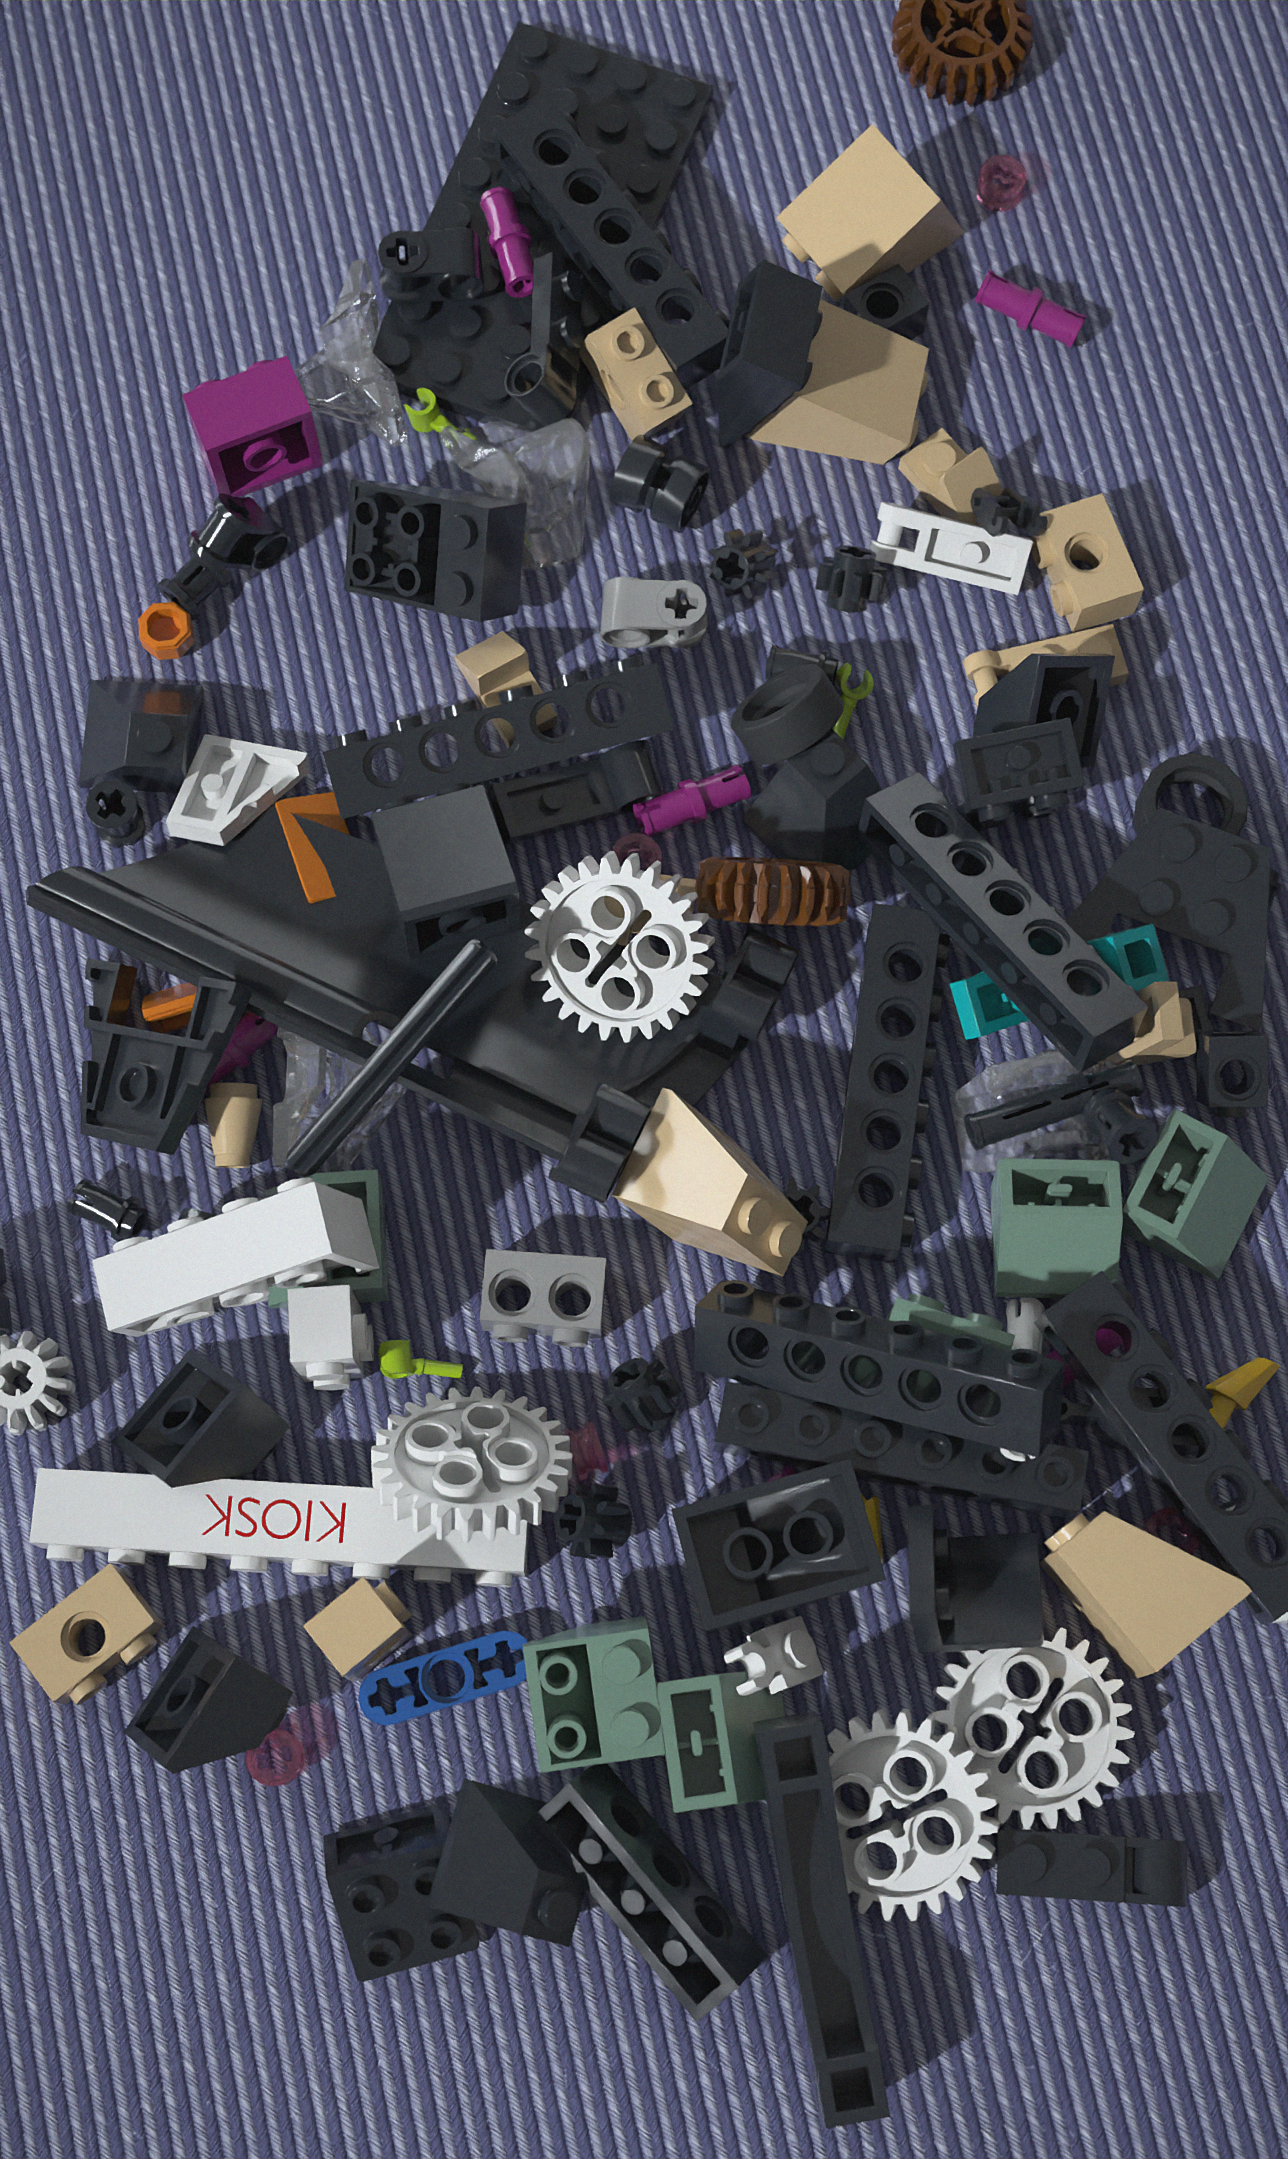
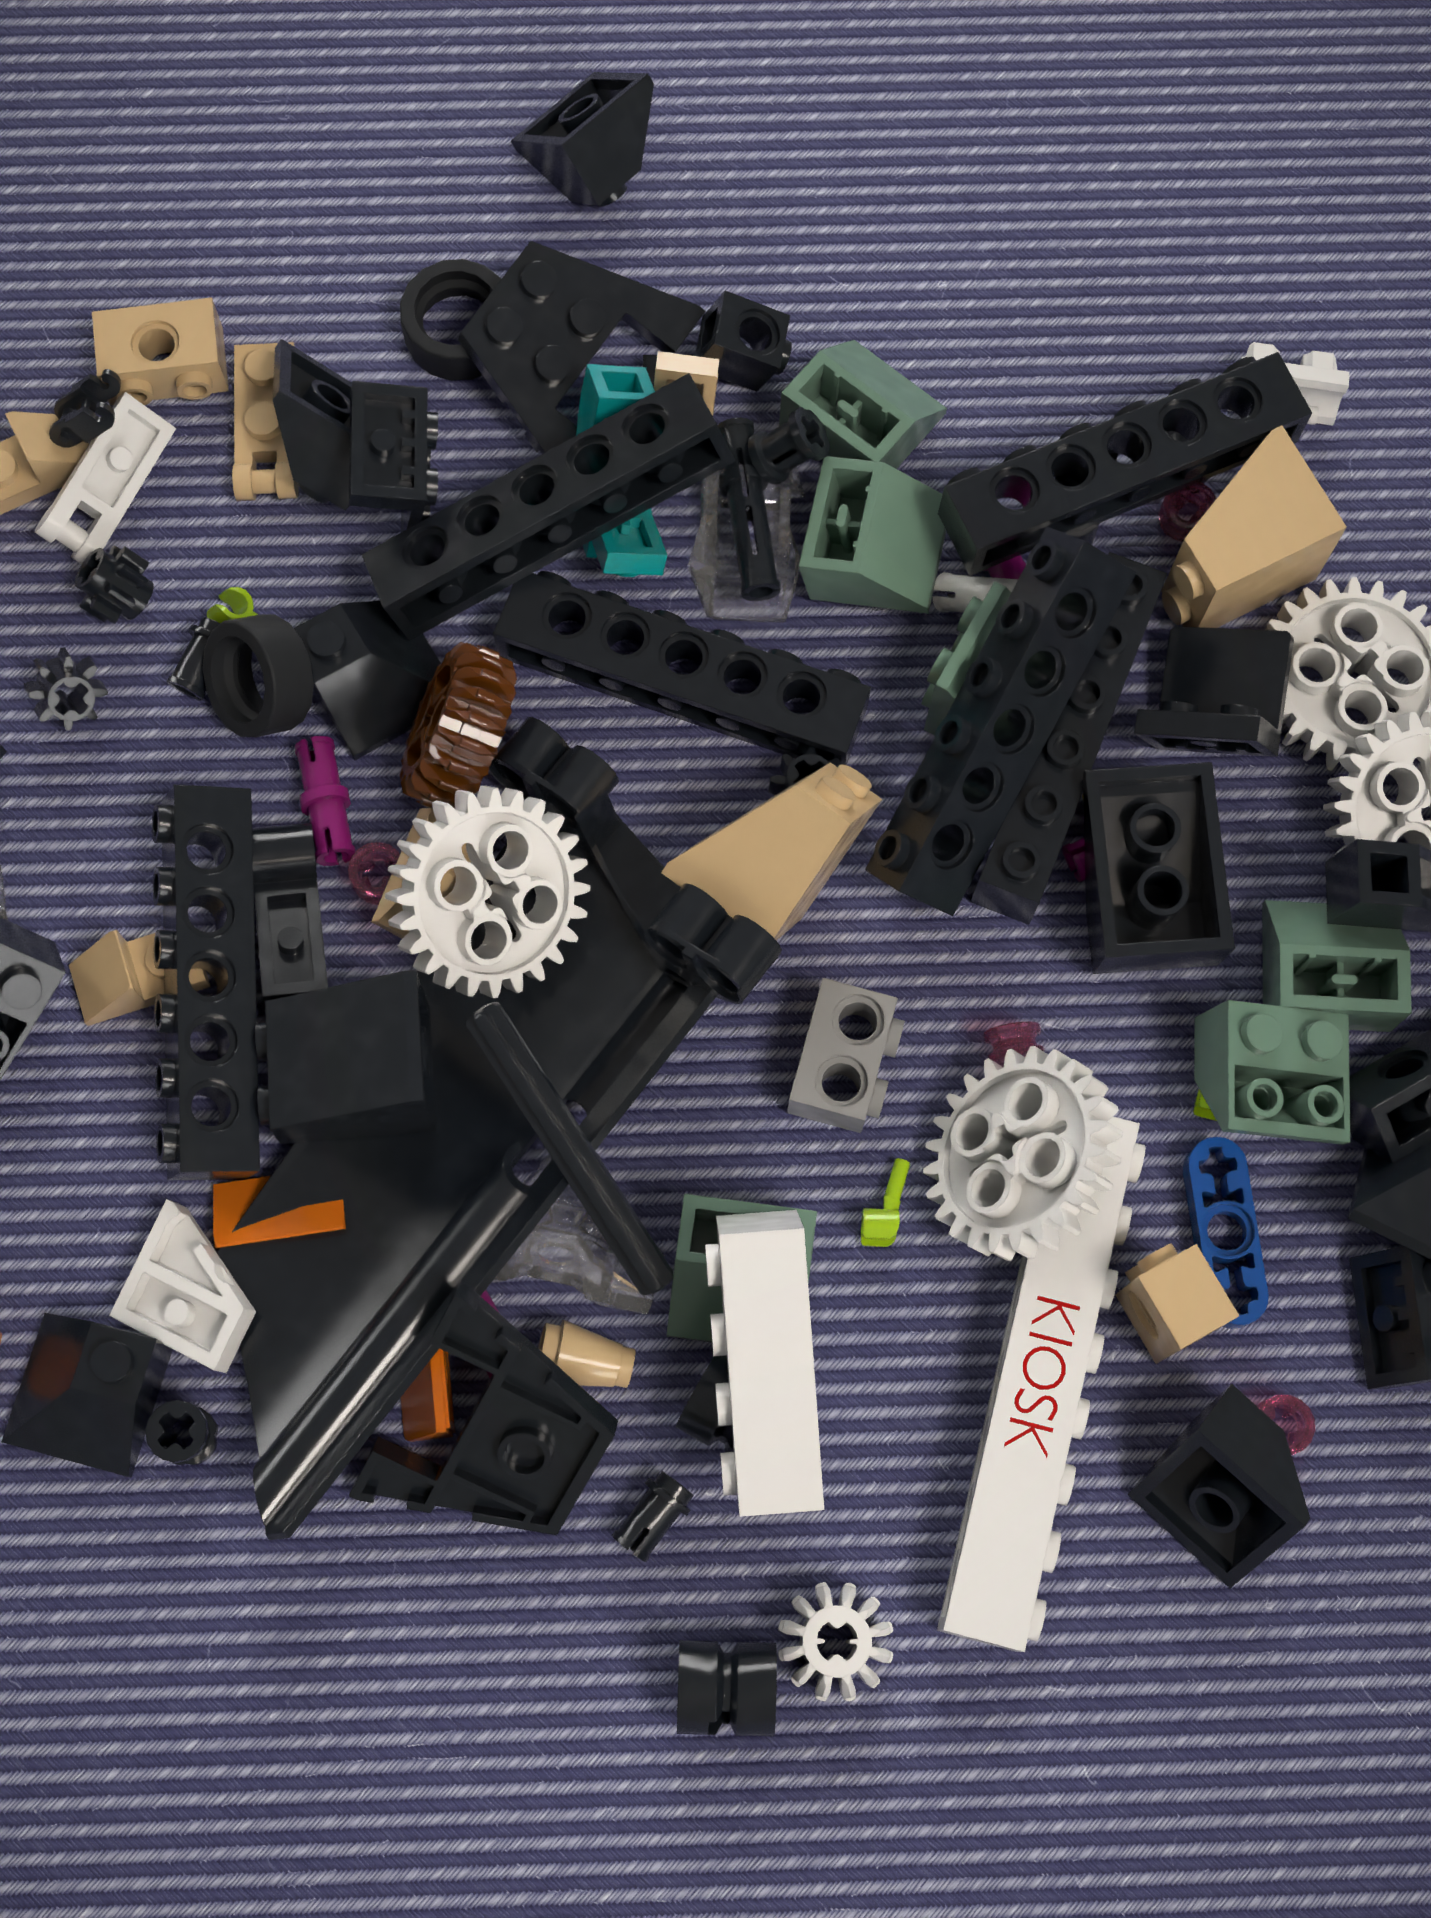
camera: 80 degrees left, 0 degrees up
(51, 1642) = (1130, 1650): tan brick -> none
(200, 1426) = (921, 1449): black slope -> none
(328, 1336) = (856, 1282): white brick -> none
(594, 1521) = (1095, 1042): black gear -> none
(642, 1395) = (968, 974): black gear -> none
(647, 611) = (92, 807): light grey piece -> none
(777, 1657) = (1262, 892): white plate -> none
(1239, 1388) = (1050, 411): yellow bar -> none

